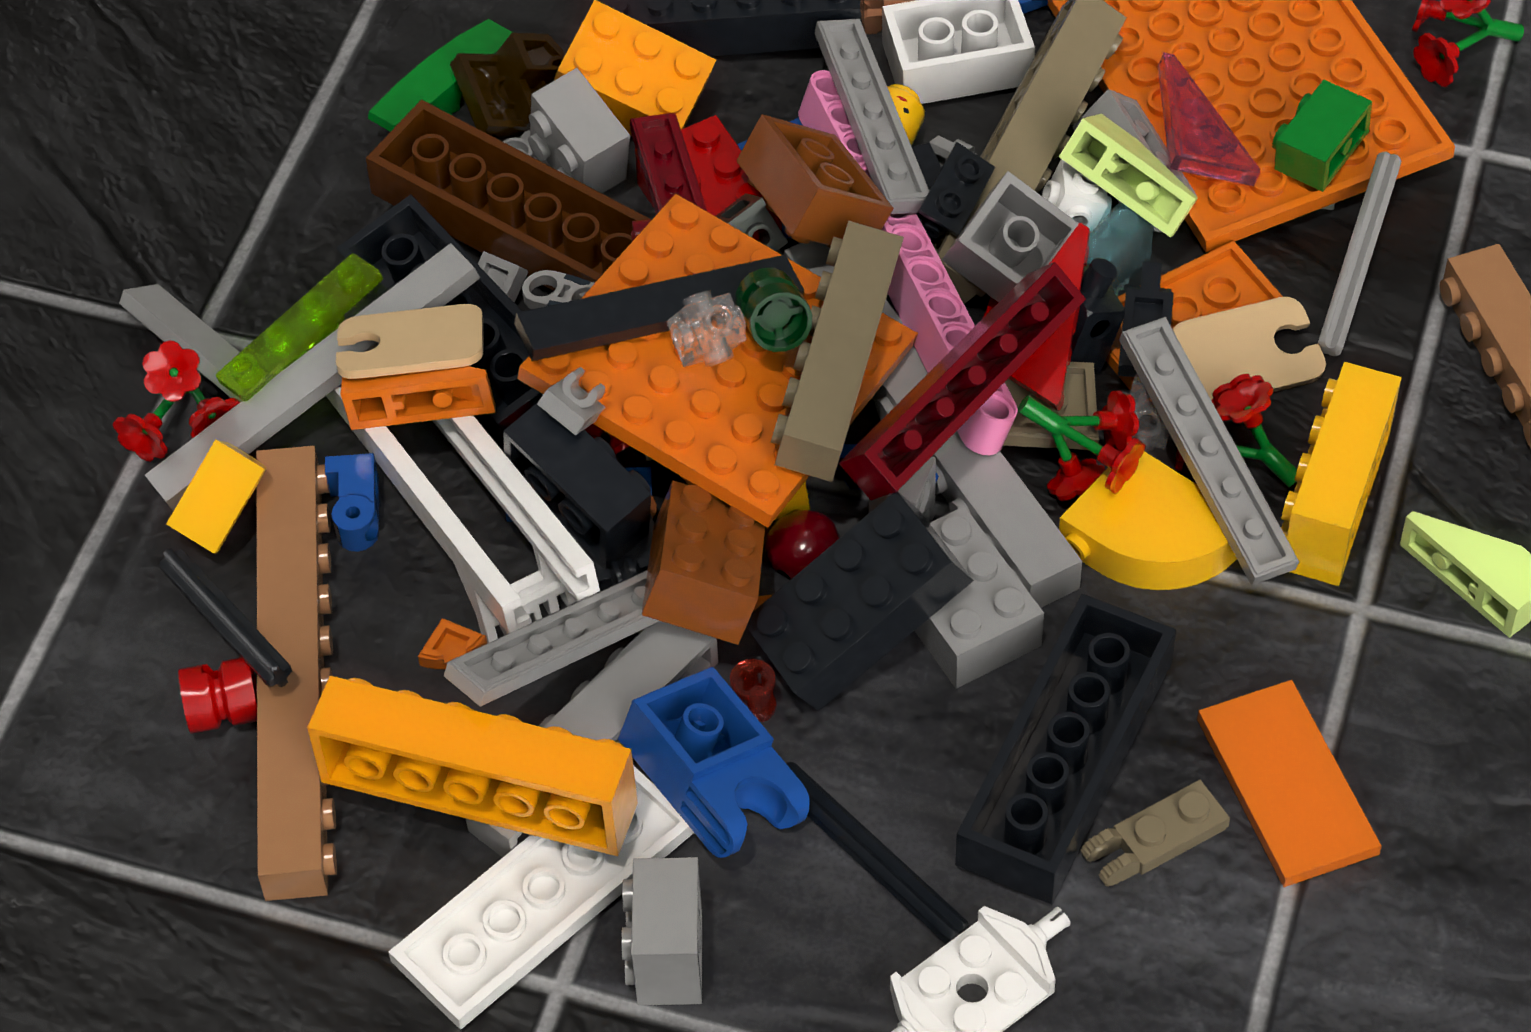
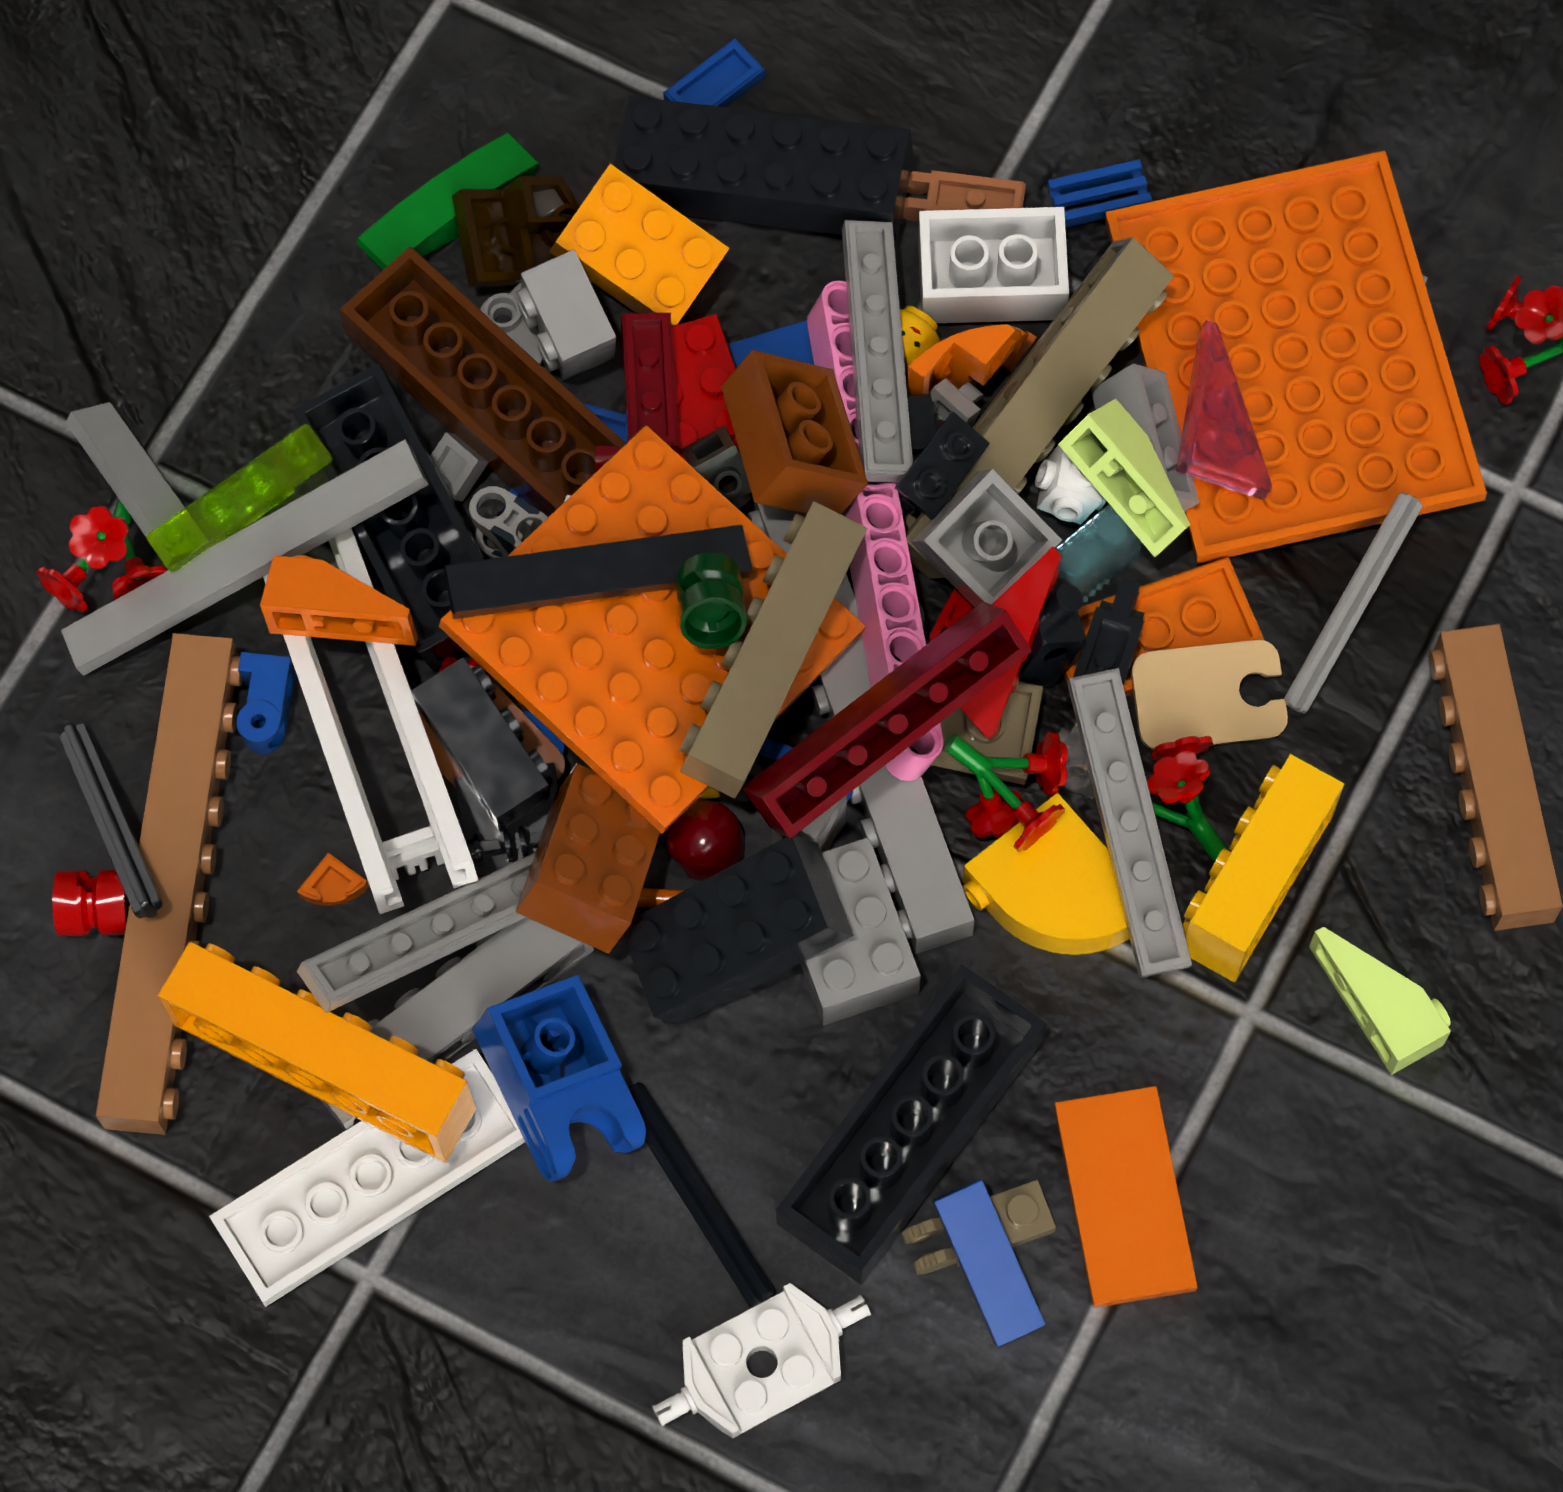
camera: 10 degrees right, 15 degrees up
(216, 495) = (126, 678): yellow brick -> none
(411, 341) = (347, 556): tan piece -> none
(571, 403) = (484, 675): light grey tile -> none
(663, 931) = (475, 1252): light grey brick -> none
(707, 329) = (621, 609): clear brick -> none
(759, 696) = (616, 982): clear red bush -> none
(958, 109) = (969, 357): none -> orange slope
(1174, 855) = (988, 1262): none -> tile
(1322, 134) = (1346, 458): green brick -> none

